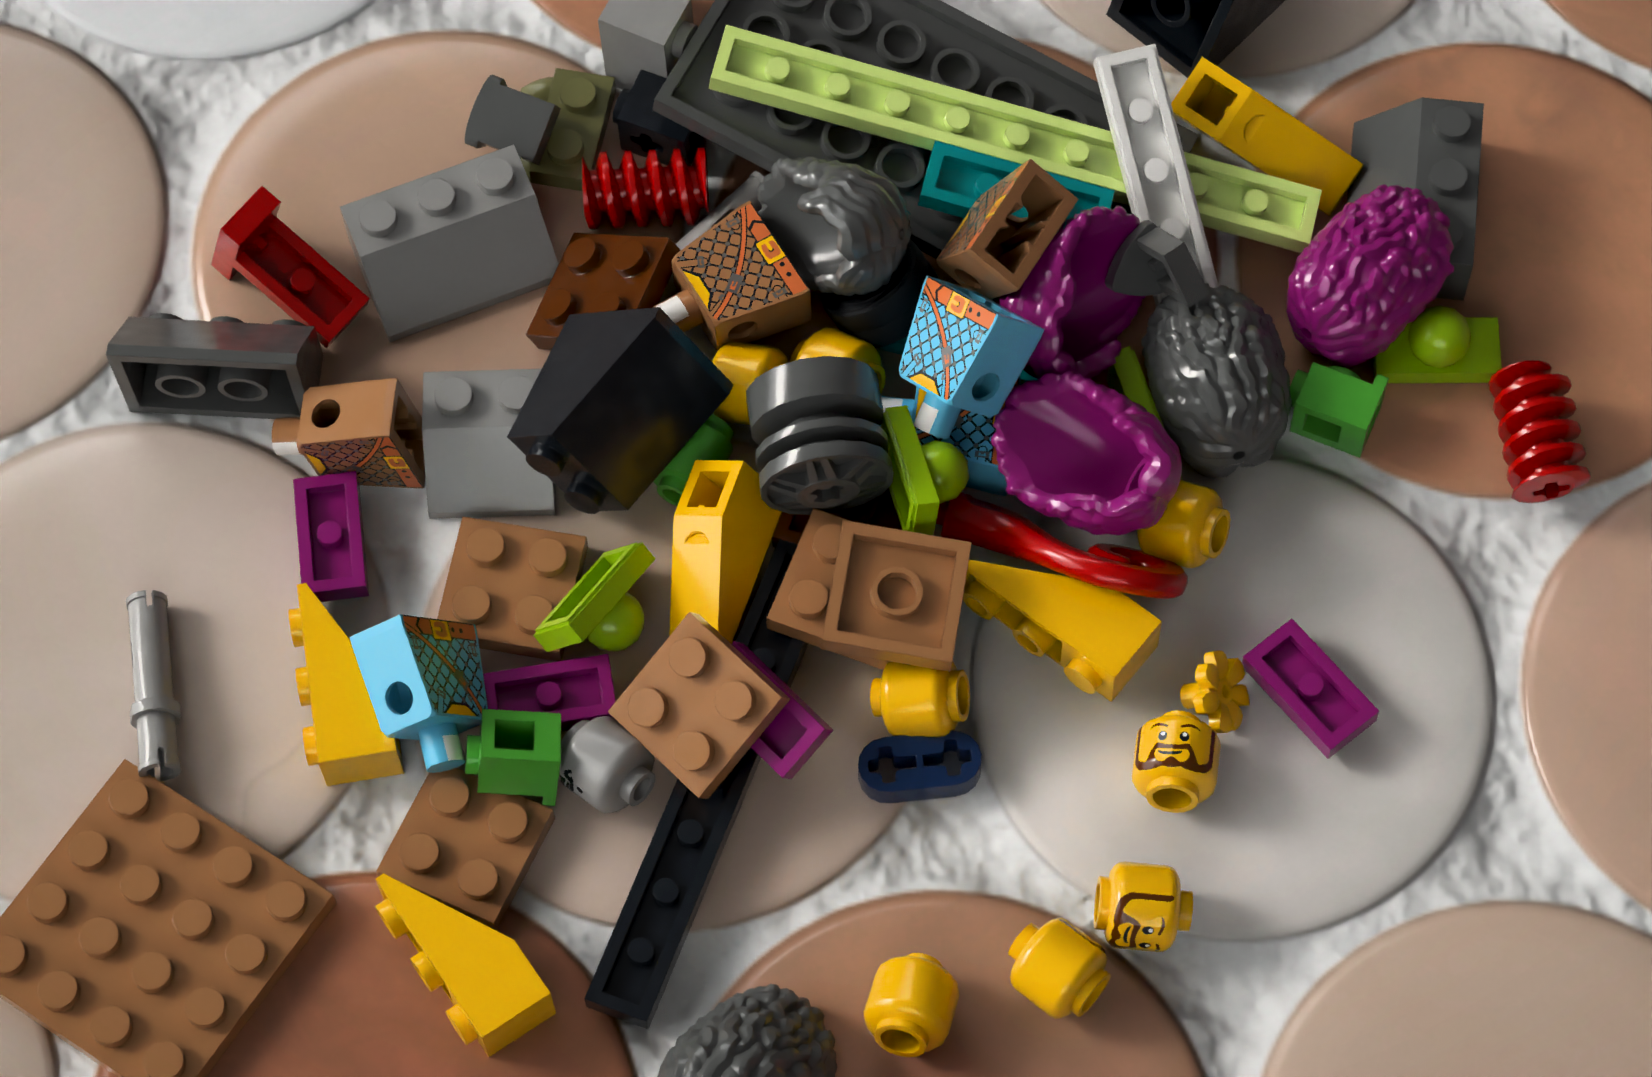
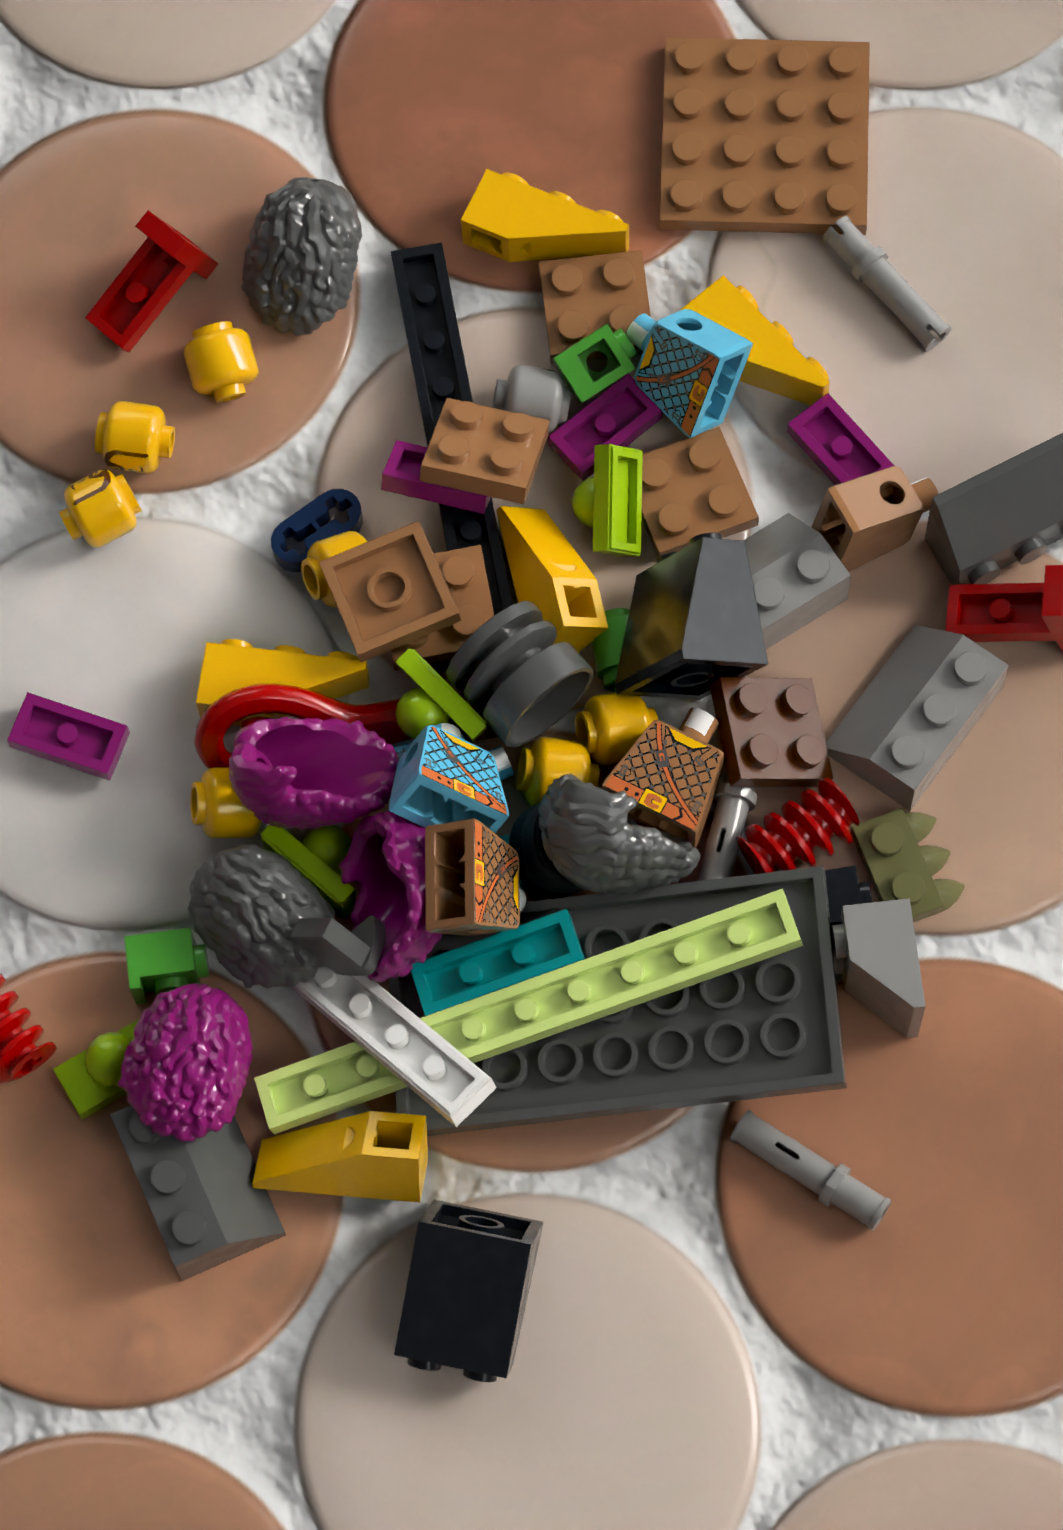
camera: 150 degrees right, 5 degrees up
(510, 118) = (937, 822): dark grey tile -> none
(1176, 761) = (133, 623): yellow head -> none
(1217, 691) = (132, 692): yellow plant -> none

